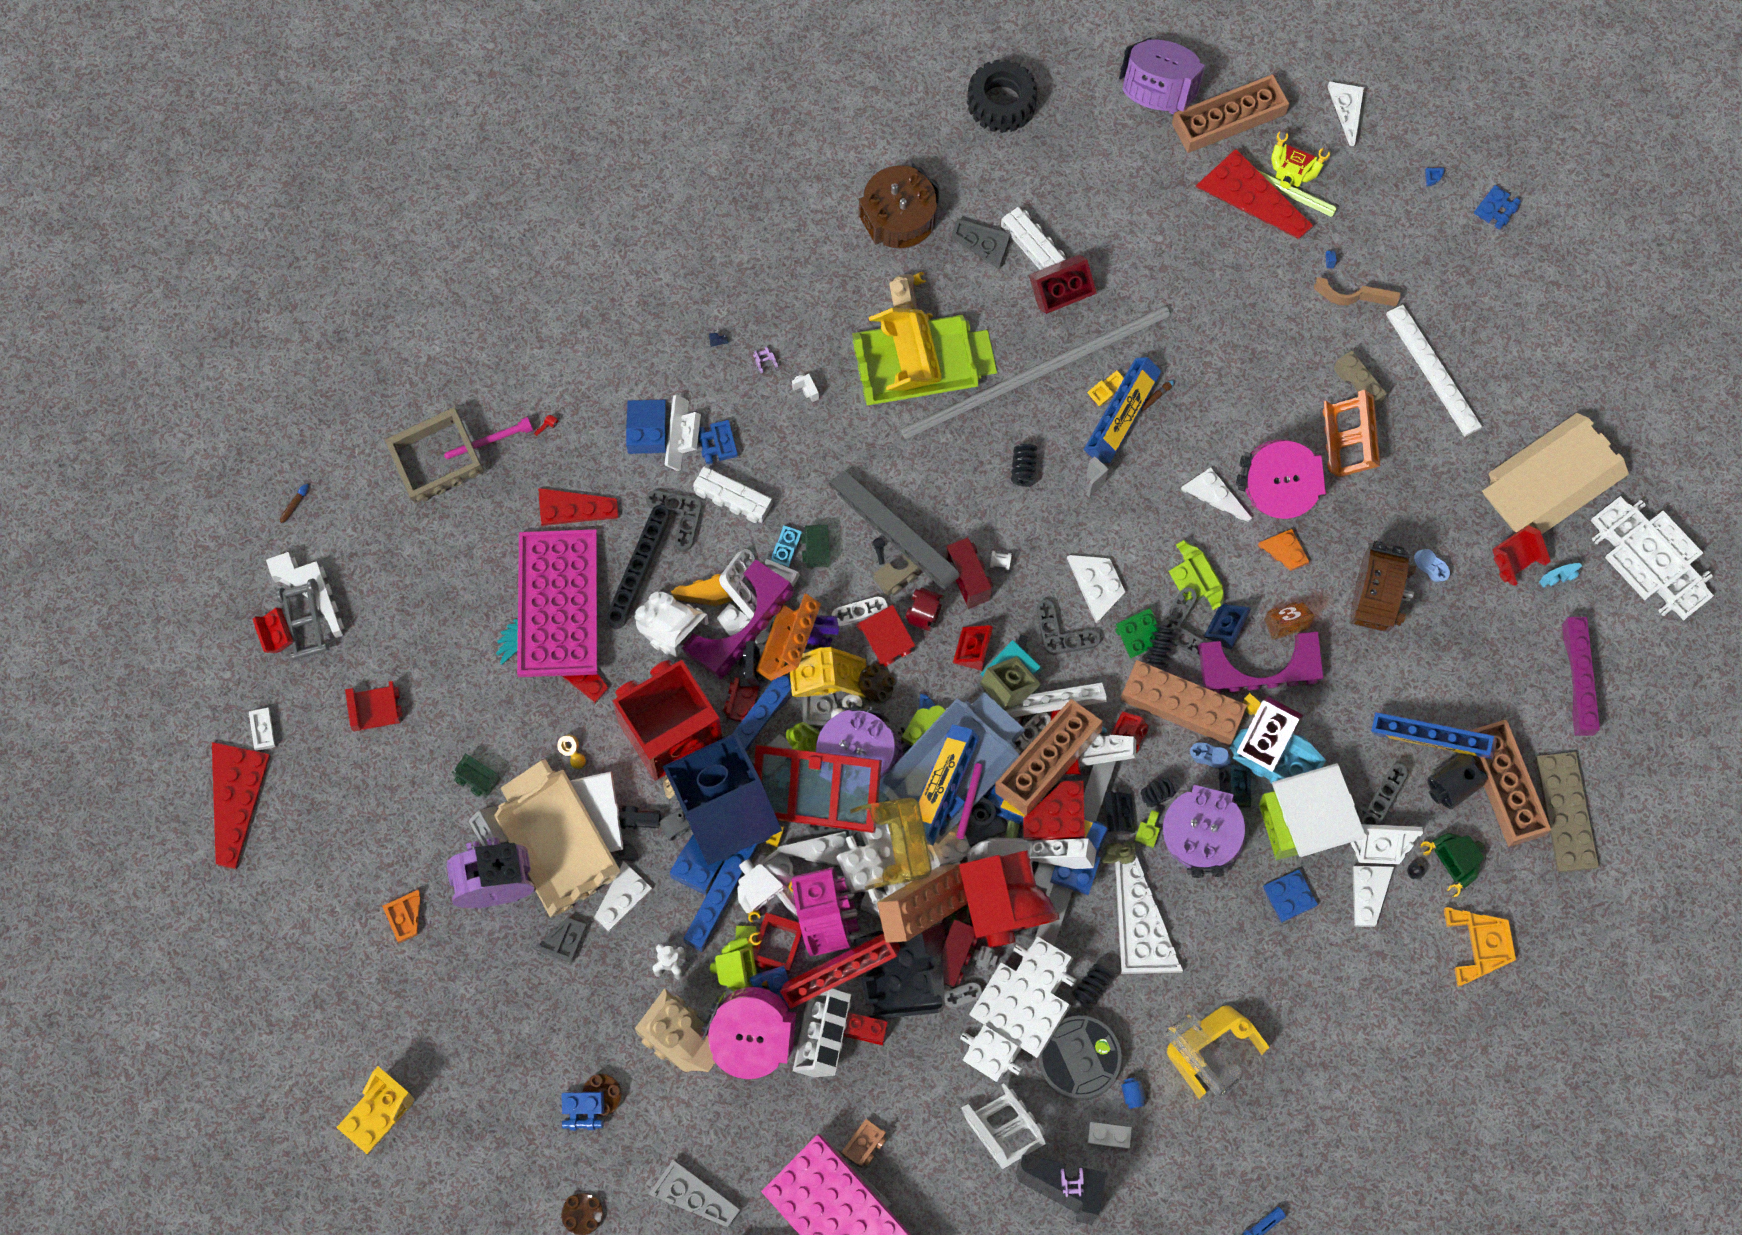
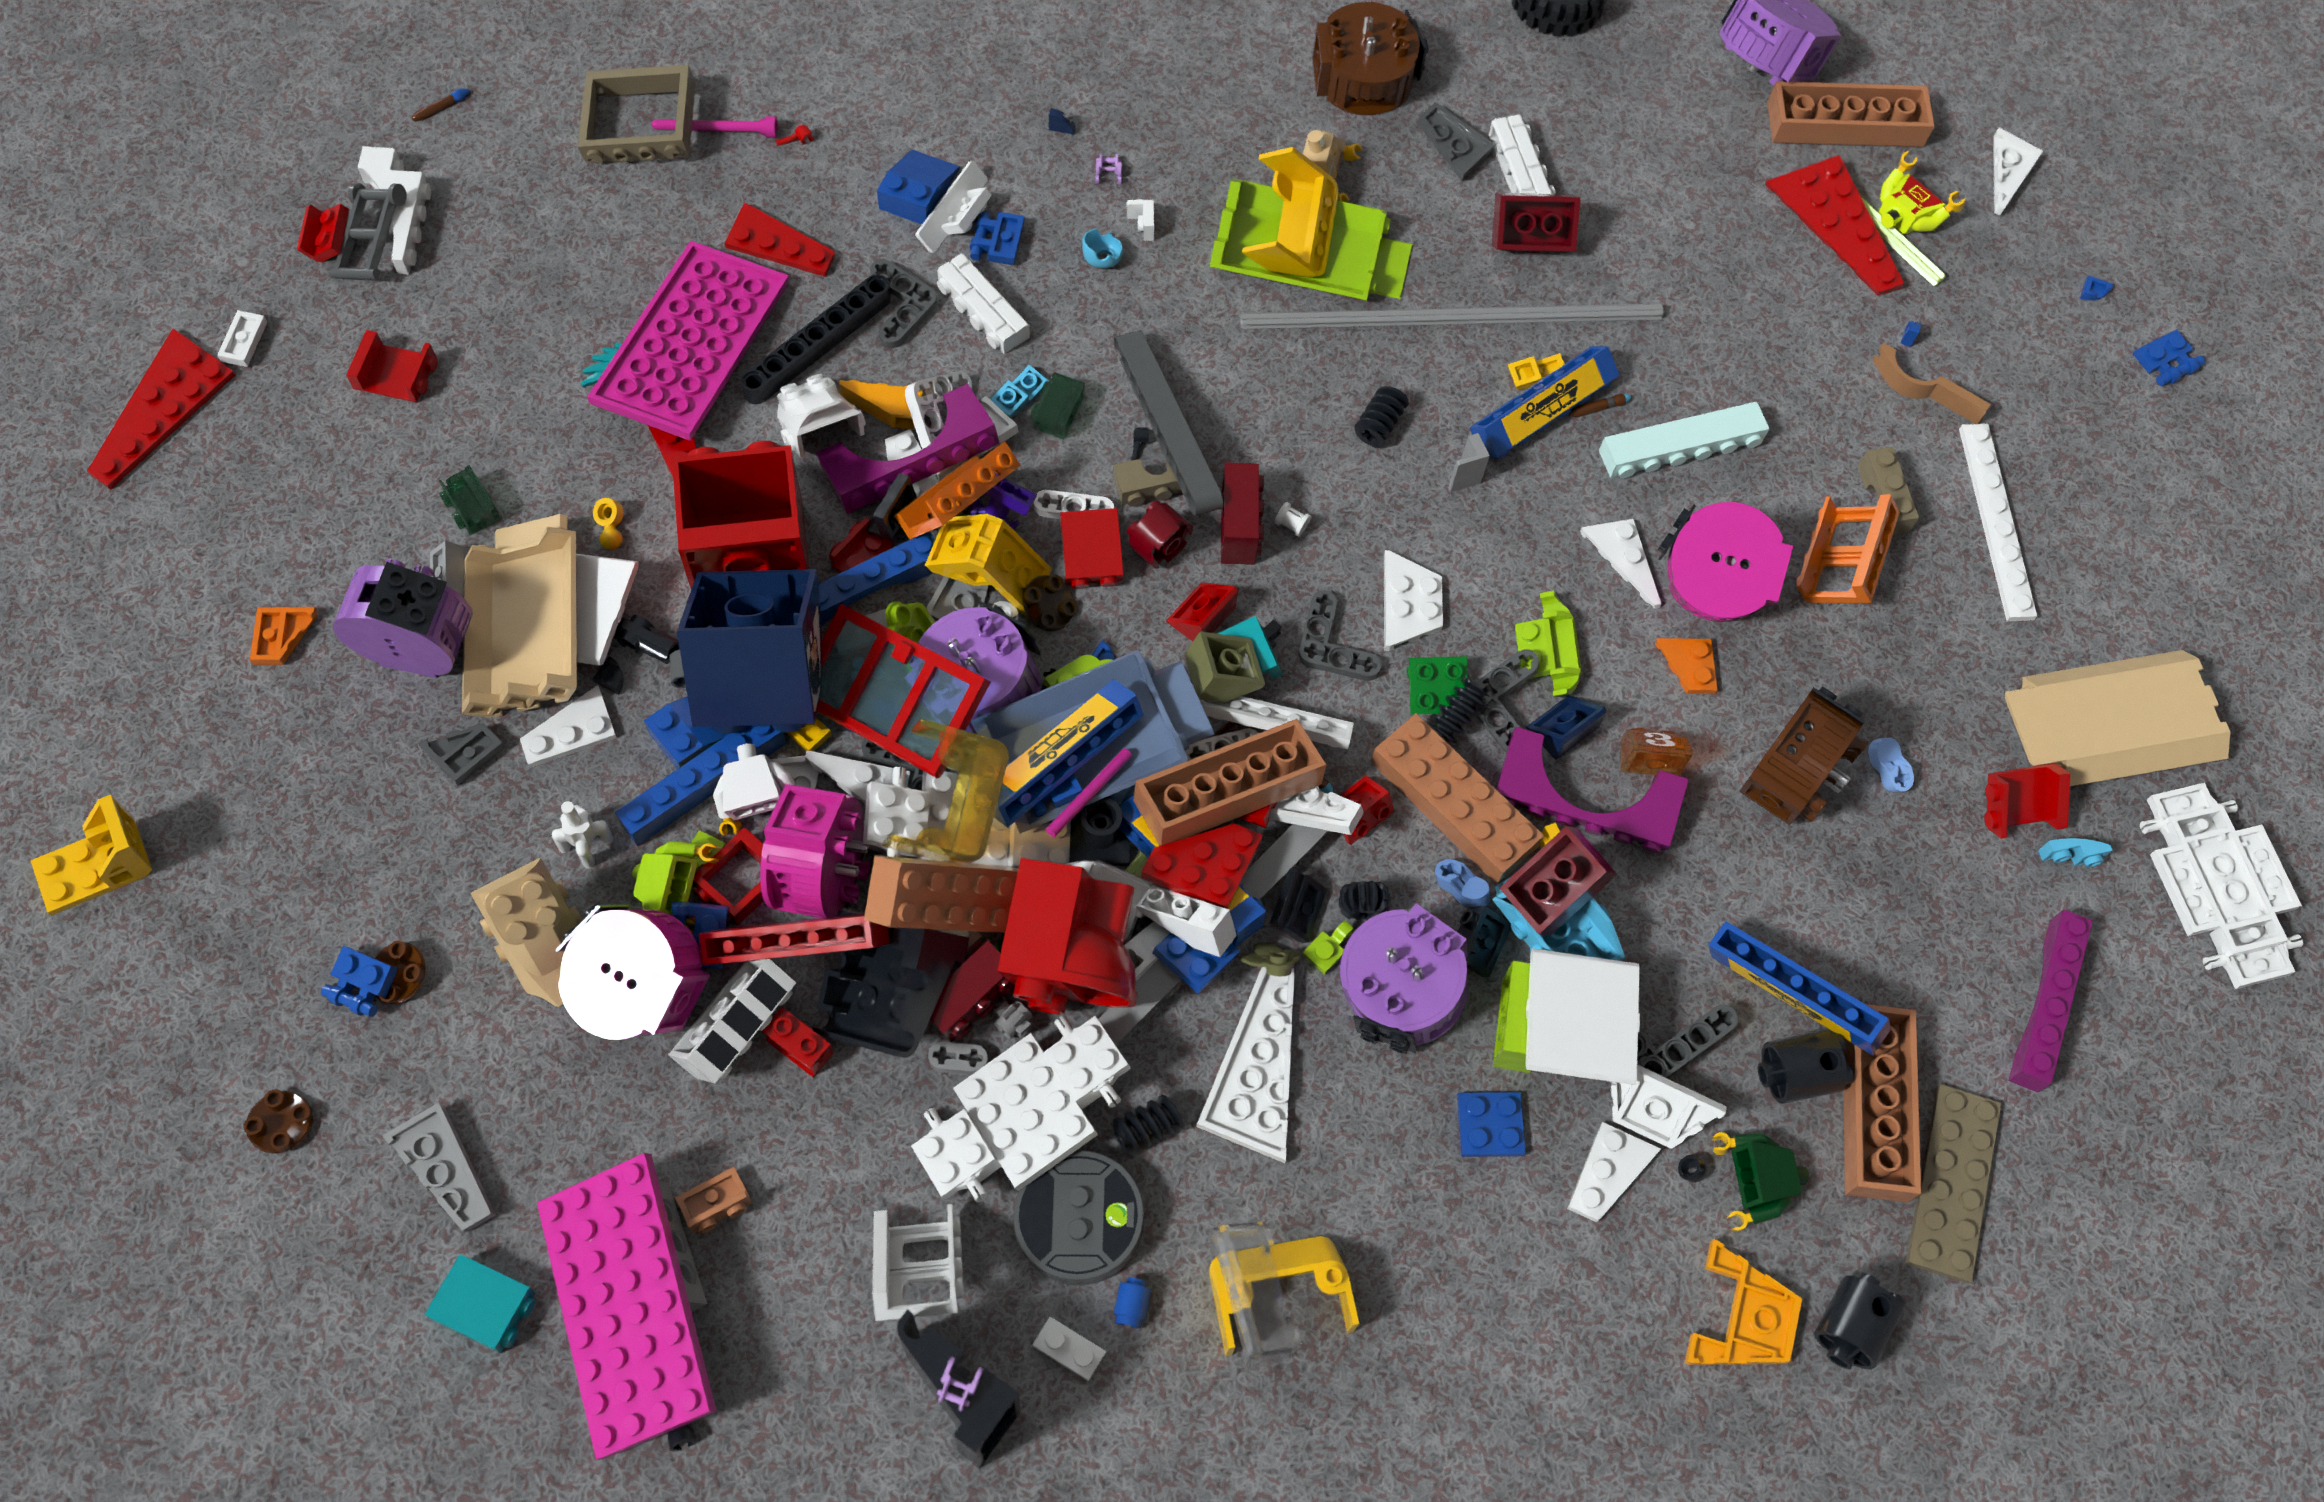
camera: 20 degrees right, 5 degrees down
(785, 418) = (1095, 244): none -> medium azure hair
(1219, 399) = (1683, 440): none -> light aqua brick
(1545, 920) = (1859, 1322): none -> black cylinder

